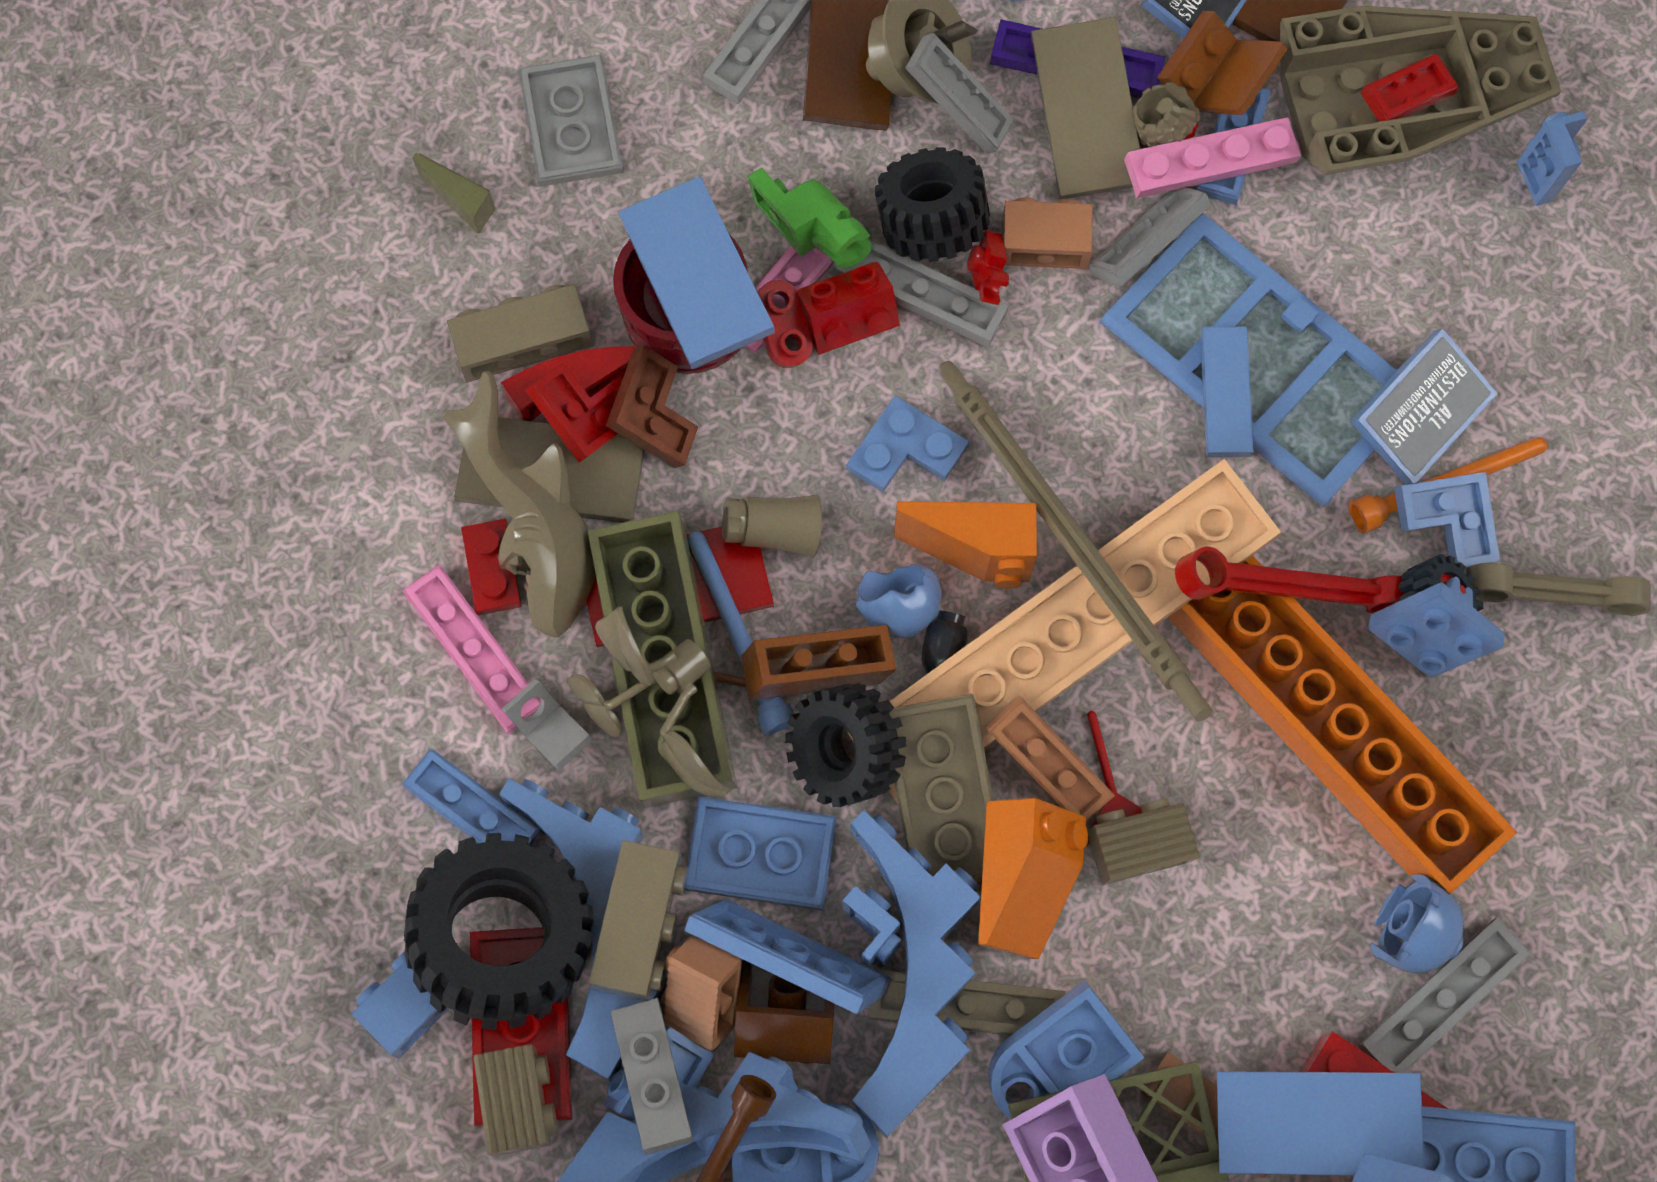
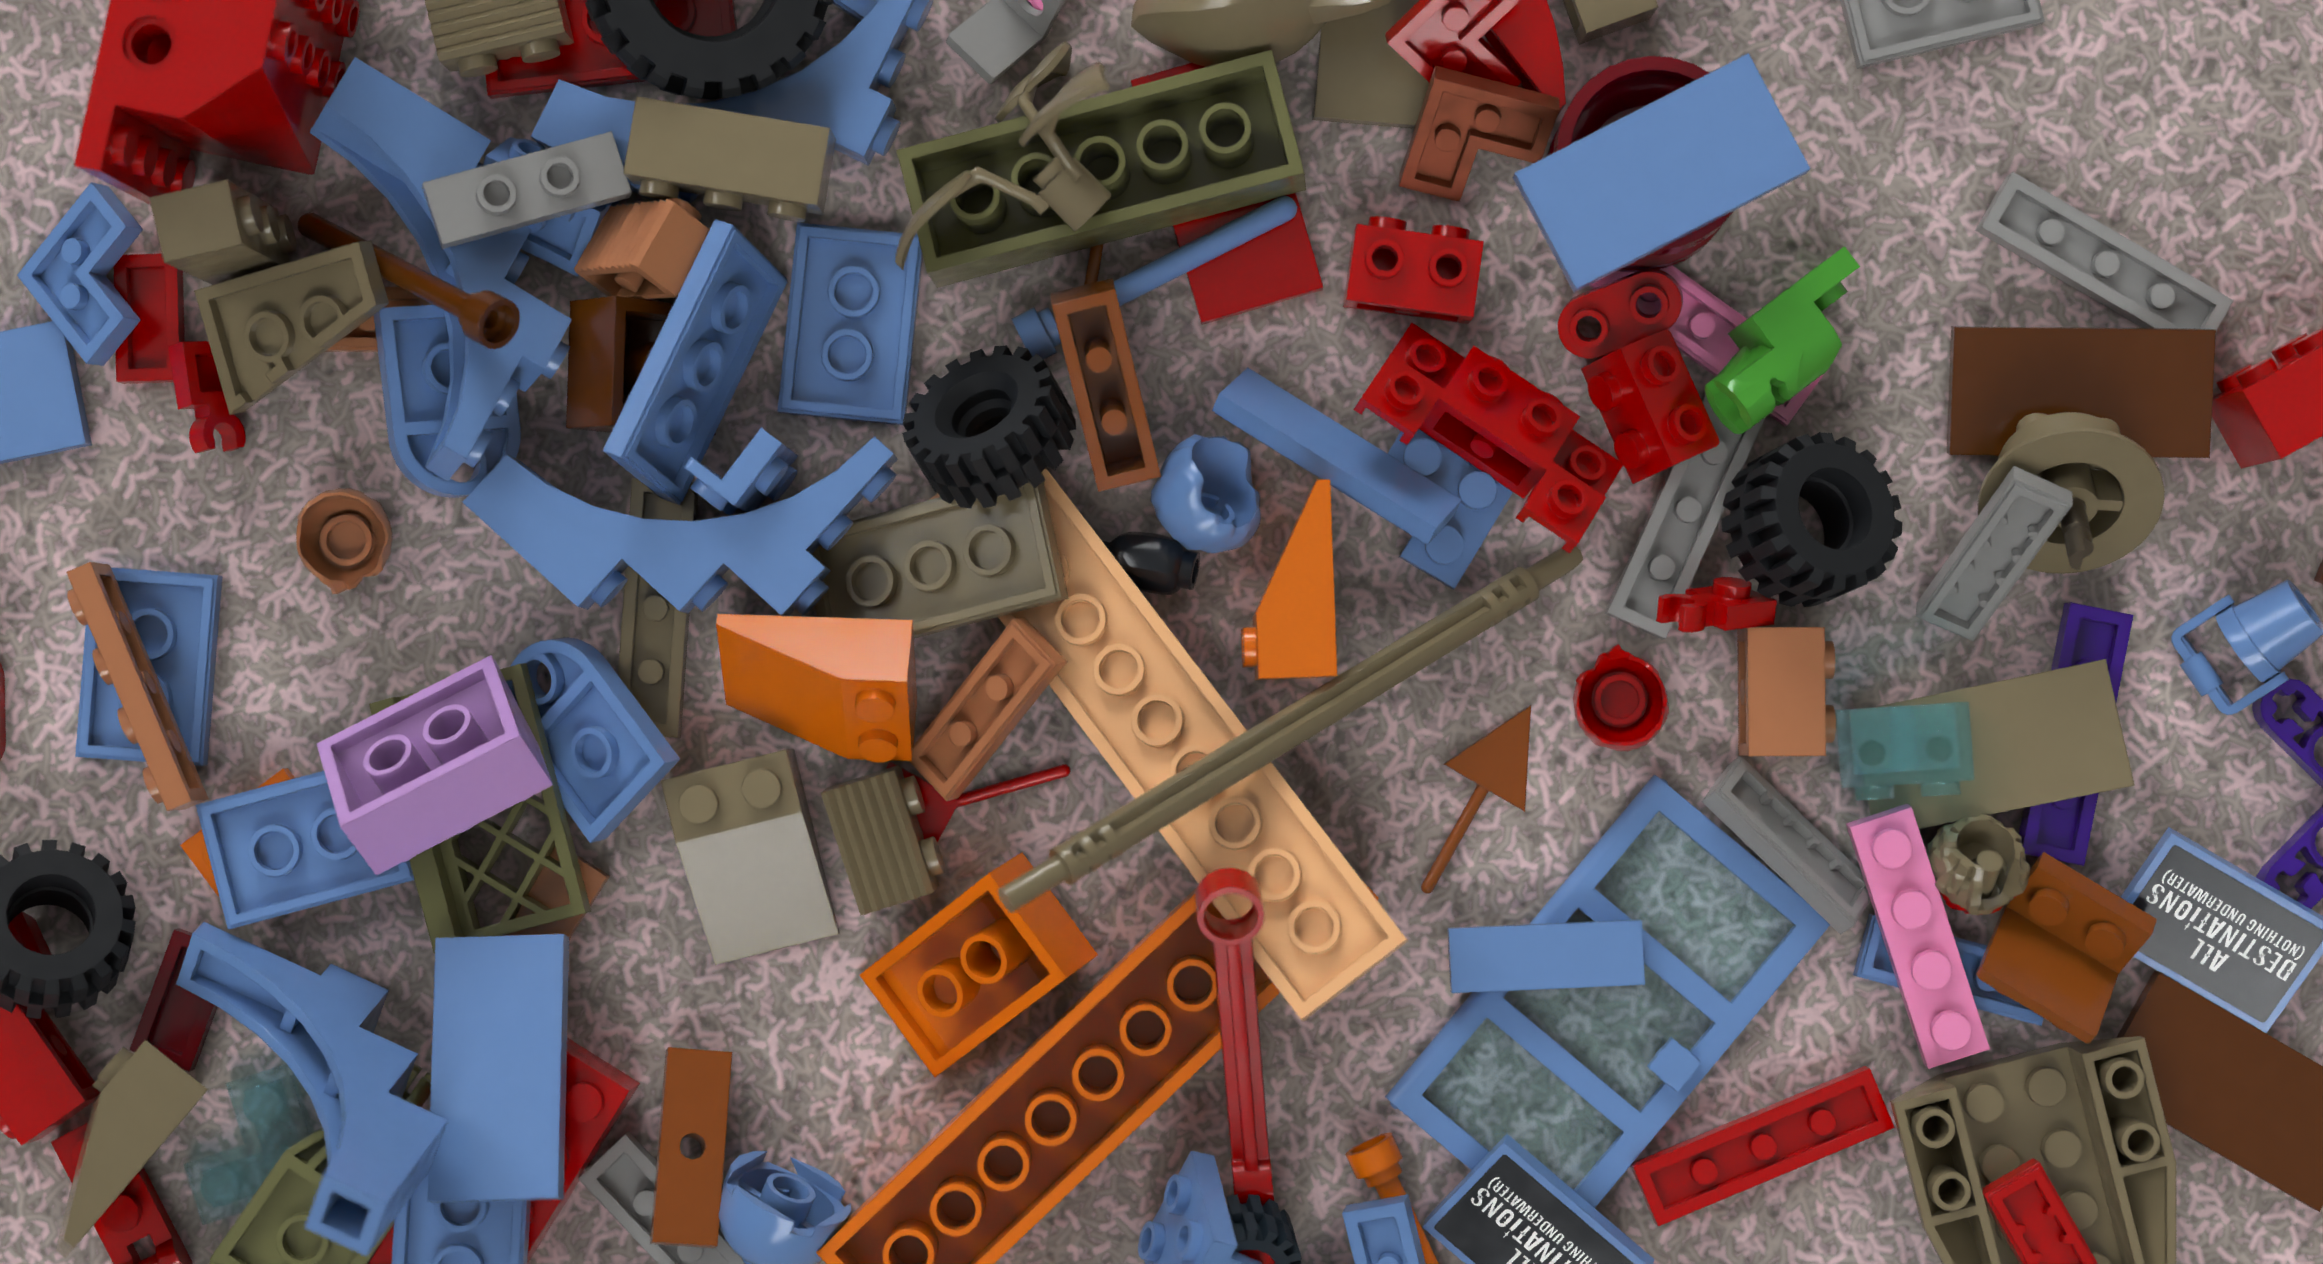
camera: 85 degrees right, 15 degrees up
(747, 453) = (1413, 271): none -> red brick
(774, 523) = (1309, 314): dark tan plant -> none
(859, 403) = (1497, 426): none -> red bracket
(874, 510) = (1337, 455): none -> medium blue tile
(1051, 334) = (1620, 701): none -> red hair
(1088, 153) = (1905, 747): none -> clear light blue brick
(1093, 423) = (1498, 766): none -> dark orange piece
(1151, 940) = (751, 855): none -> dark tan slope
(1234, 779) = (976, 967): none -> orange slope
(1341, 990) = (696, 1108): none -> dark orange tile
(1354, 264) = (1762, 1145): none -> red plate

